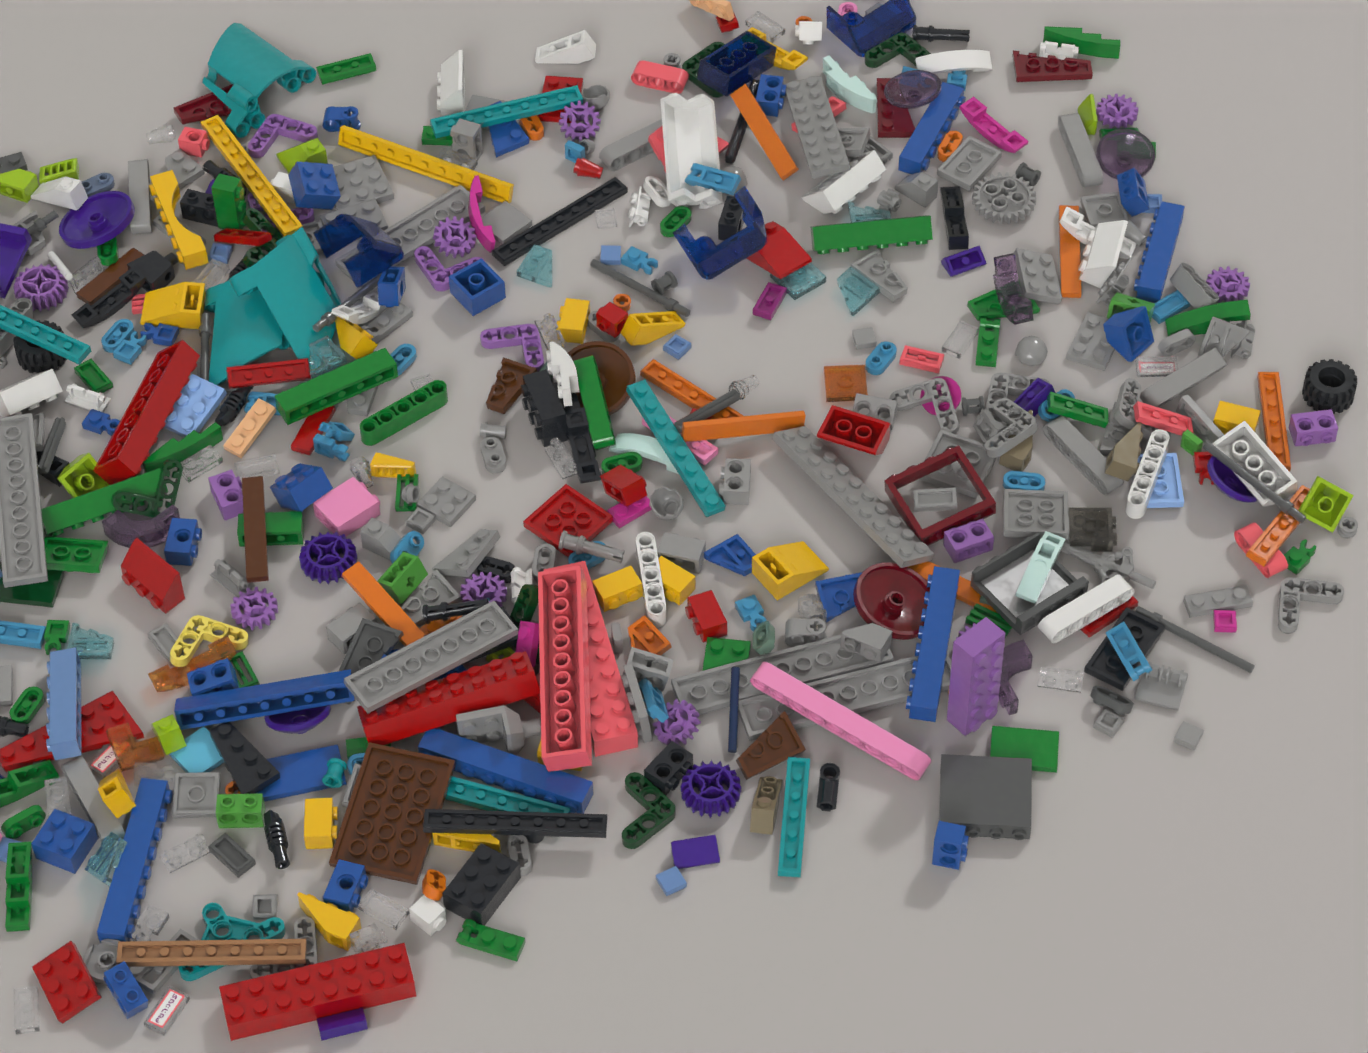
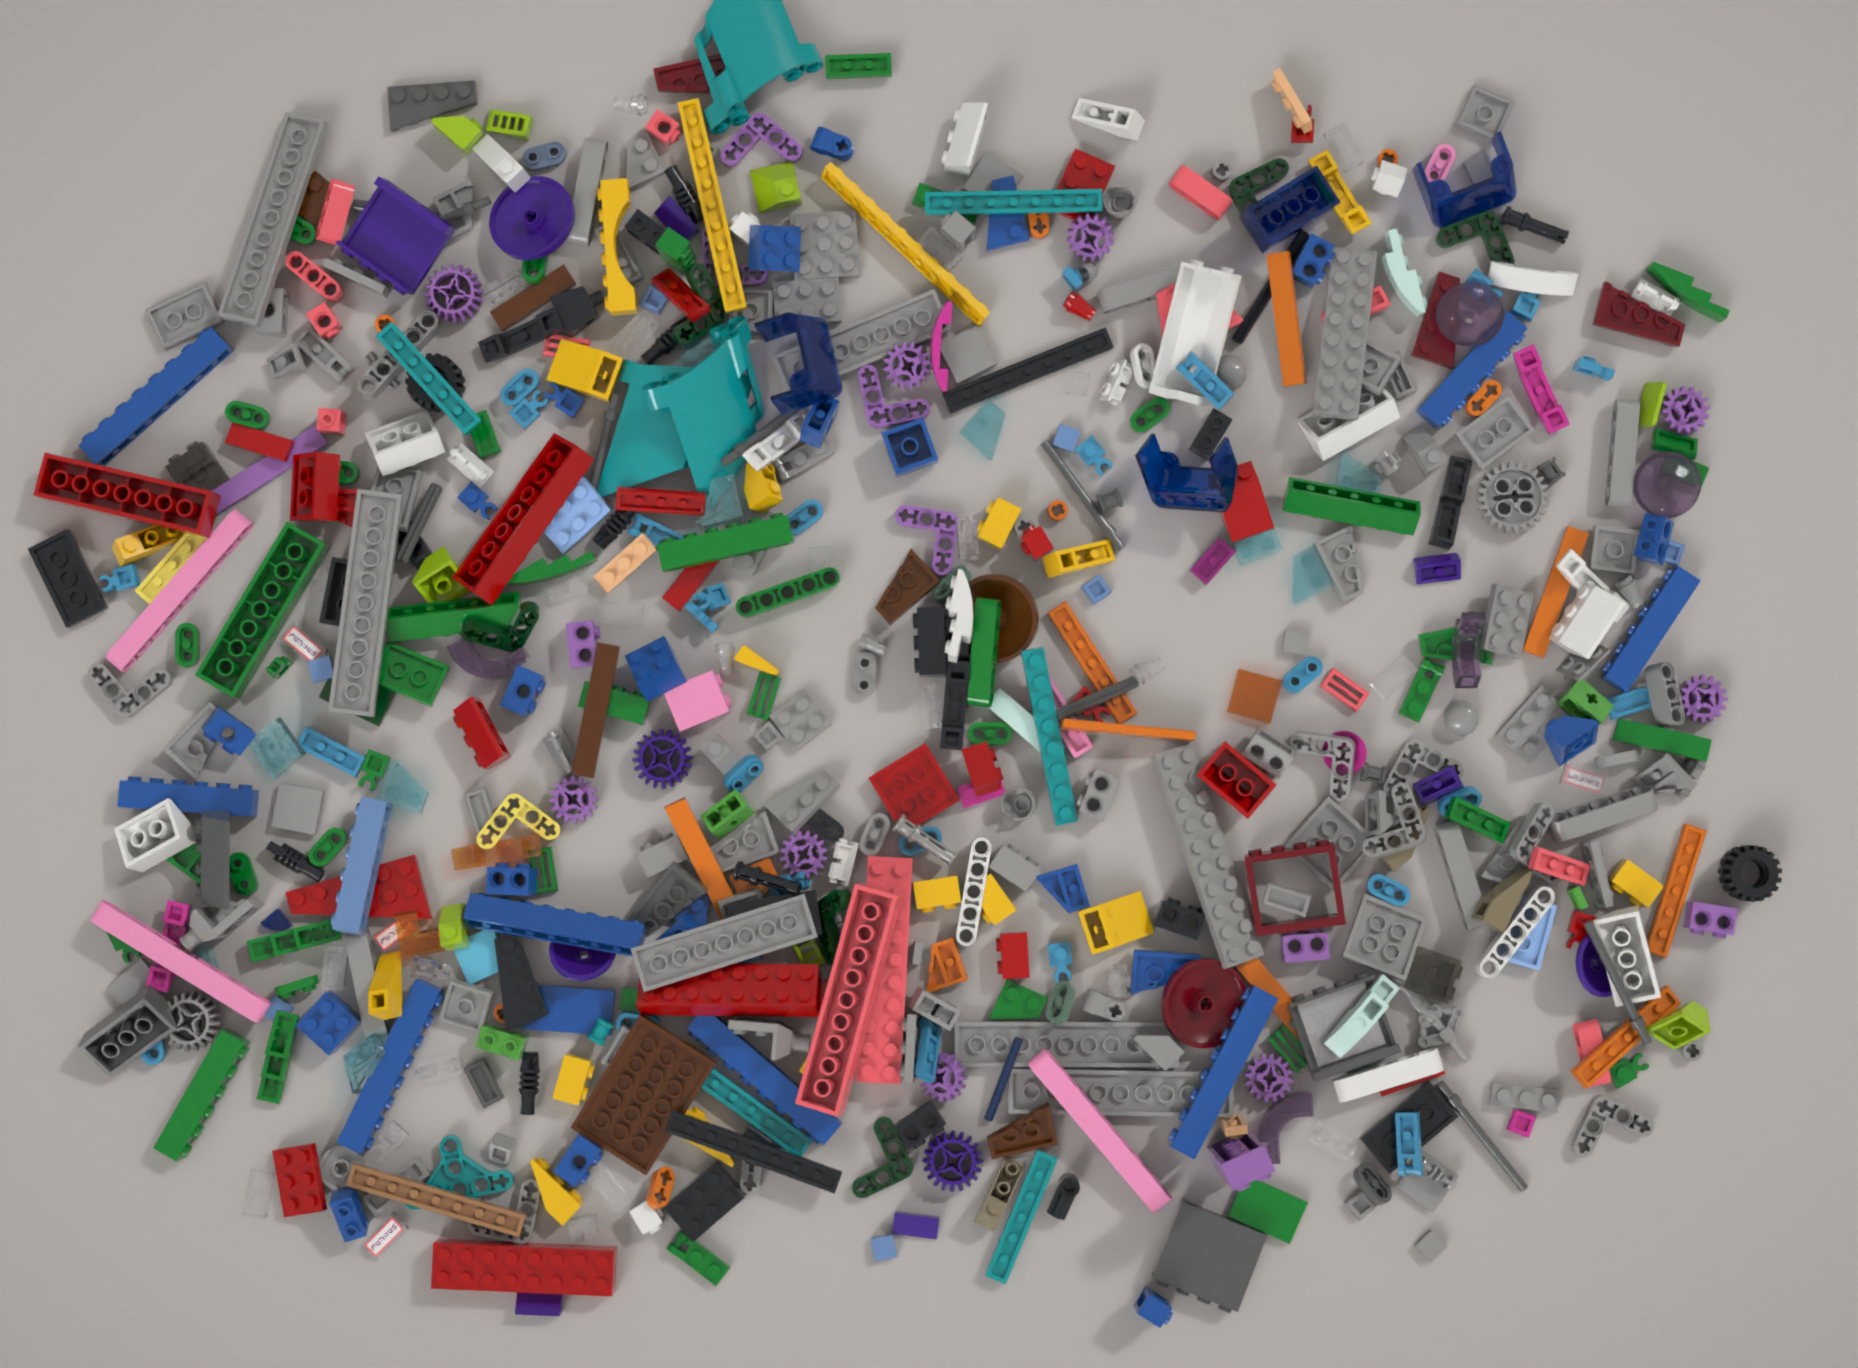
camera: 20 degrees right, 35 degrees up
(60, 266) = (479, 271): white bar -> none
(411, 493) = (764, 708): light grey plate -> none
(528, 640) = (824, 946): dark pink plate -> none
(846, 551) = (1177, 924): none -> black brick
(1027, 104) = (1589, 366): none -> dark azure plate

